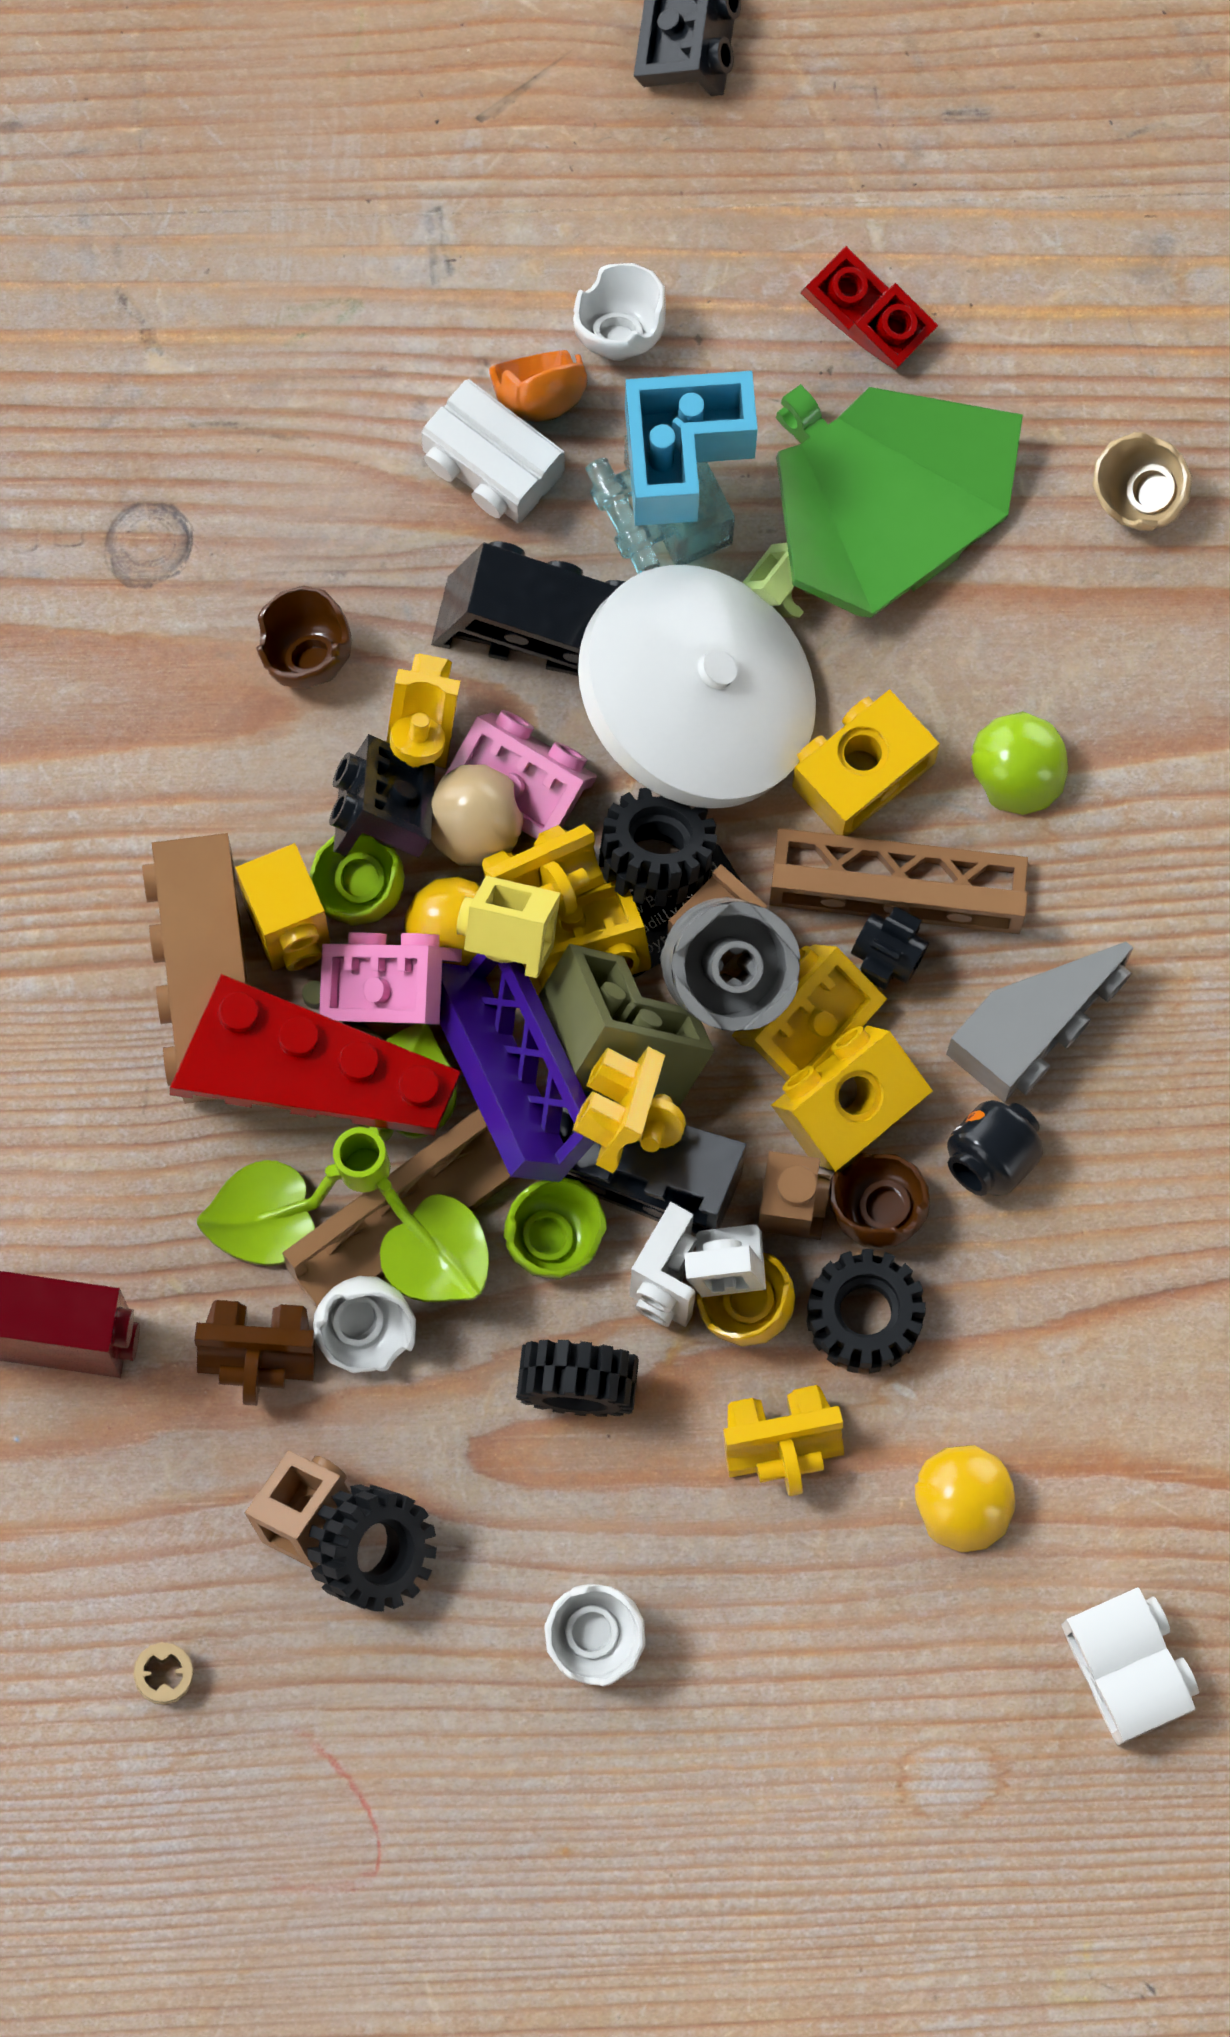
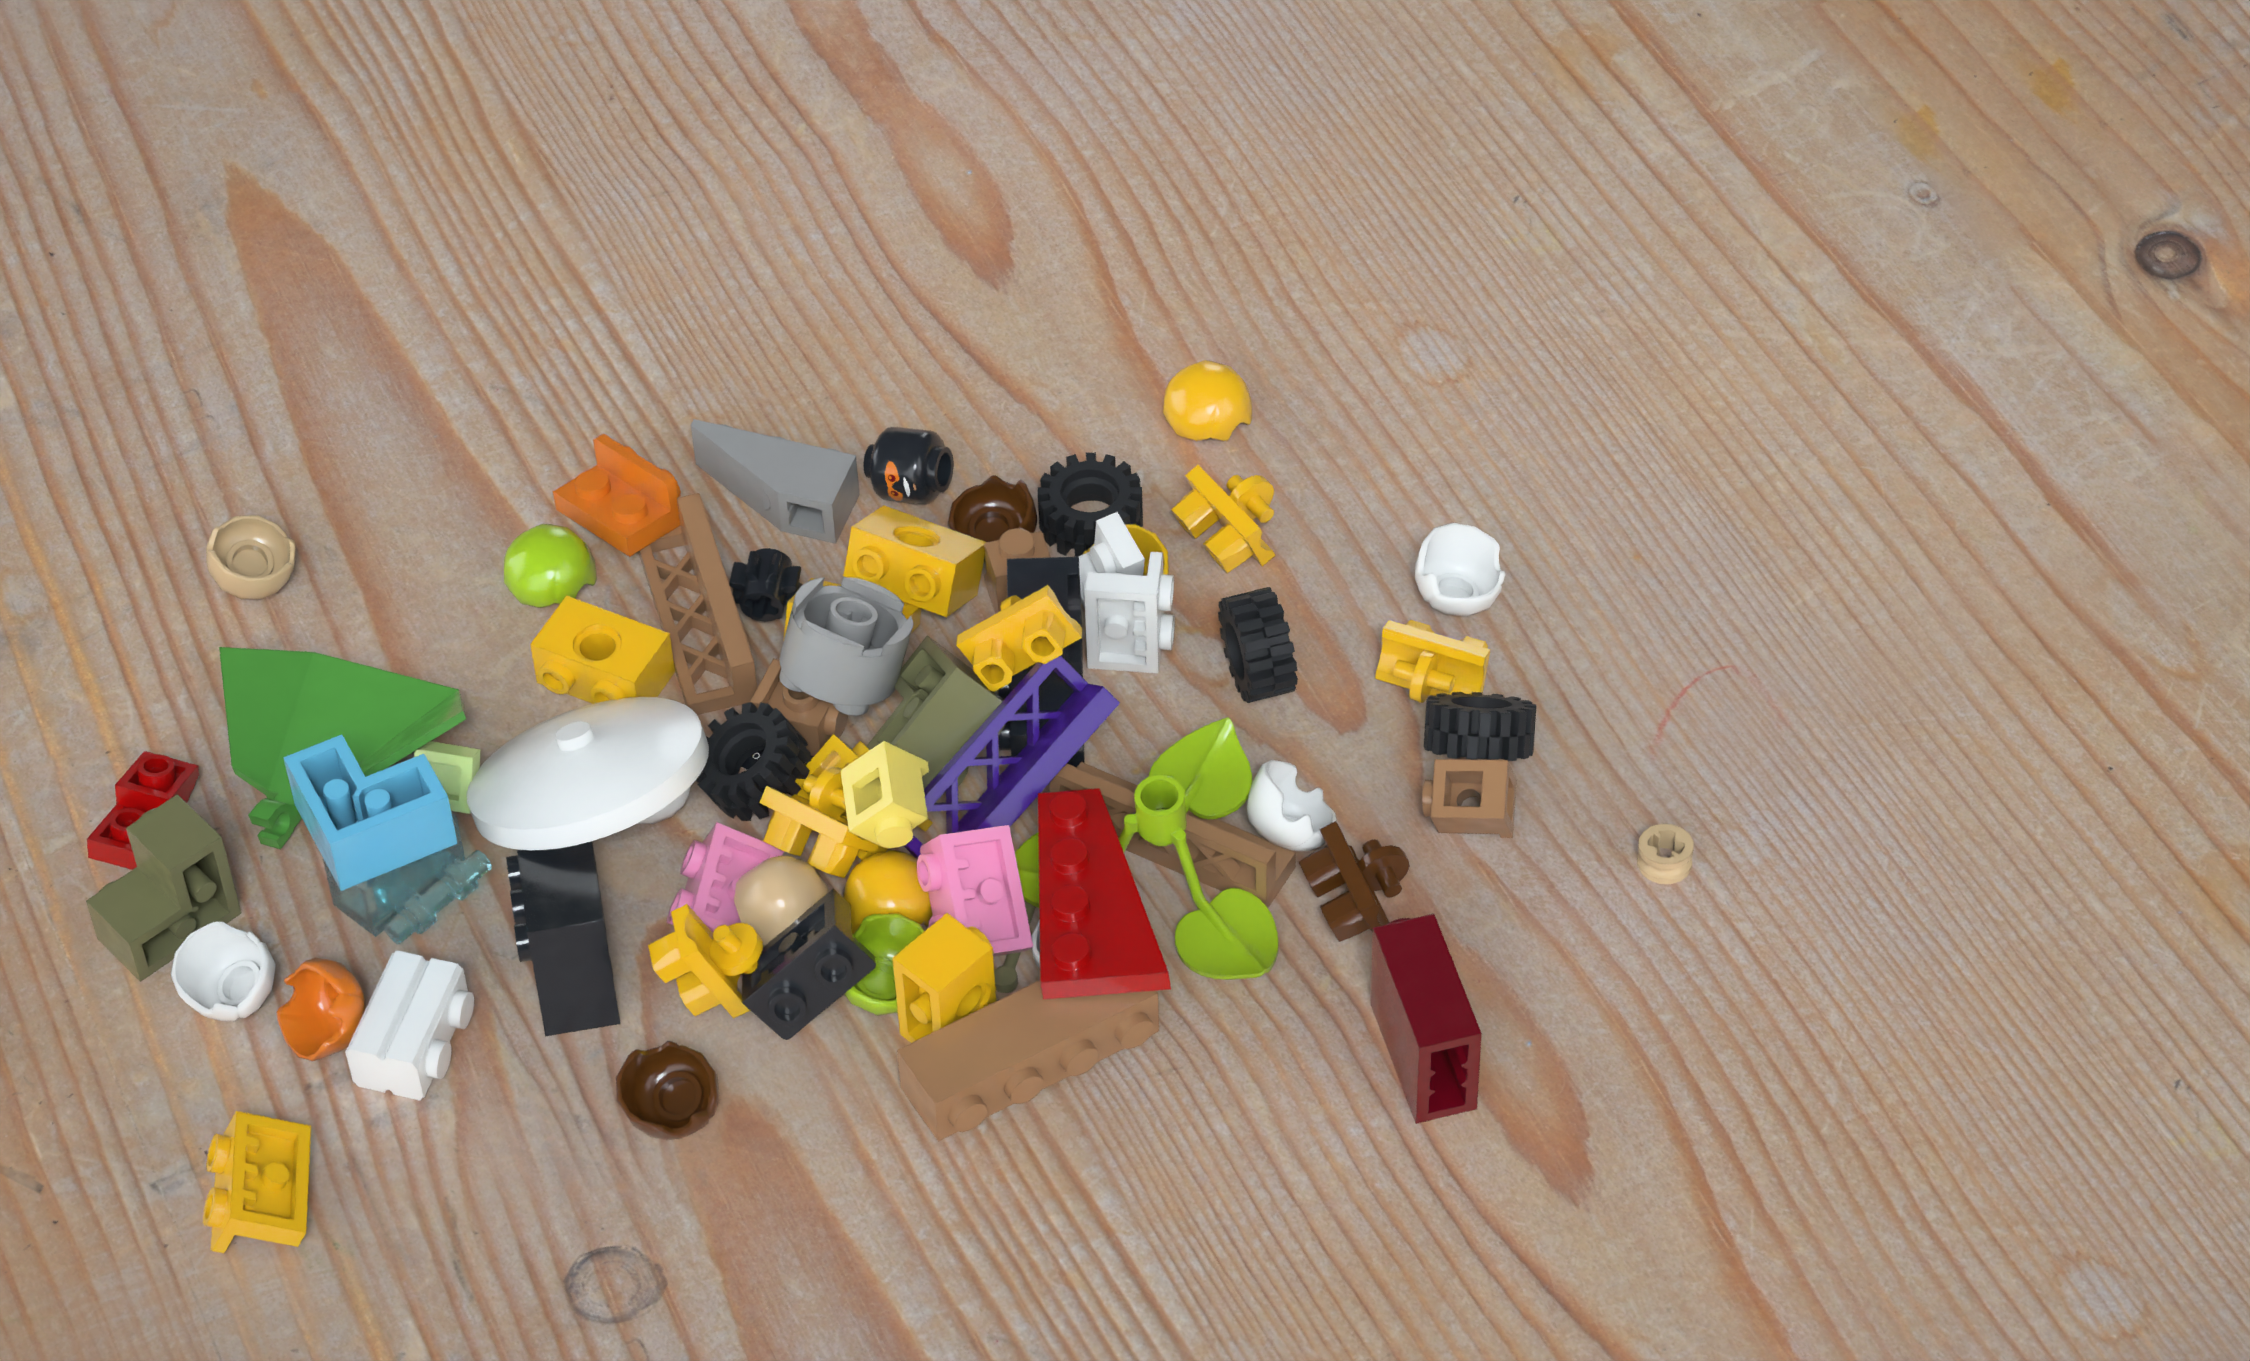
camera: 110 degrees left, 25 degrees down
(378, 282) = (258, 1181): none -> yellow bracket
(515, 1536) = (1431, 662): none -> yellow hips
(554, 1228) = (1142, 722): lime hair -> none
(736, 286) = (173, 891): none -> olive brick
(1073, 851) = (621, 498): none -> orange bracket
(1130, 1666) = (1285, 265): white brick -> none

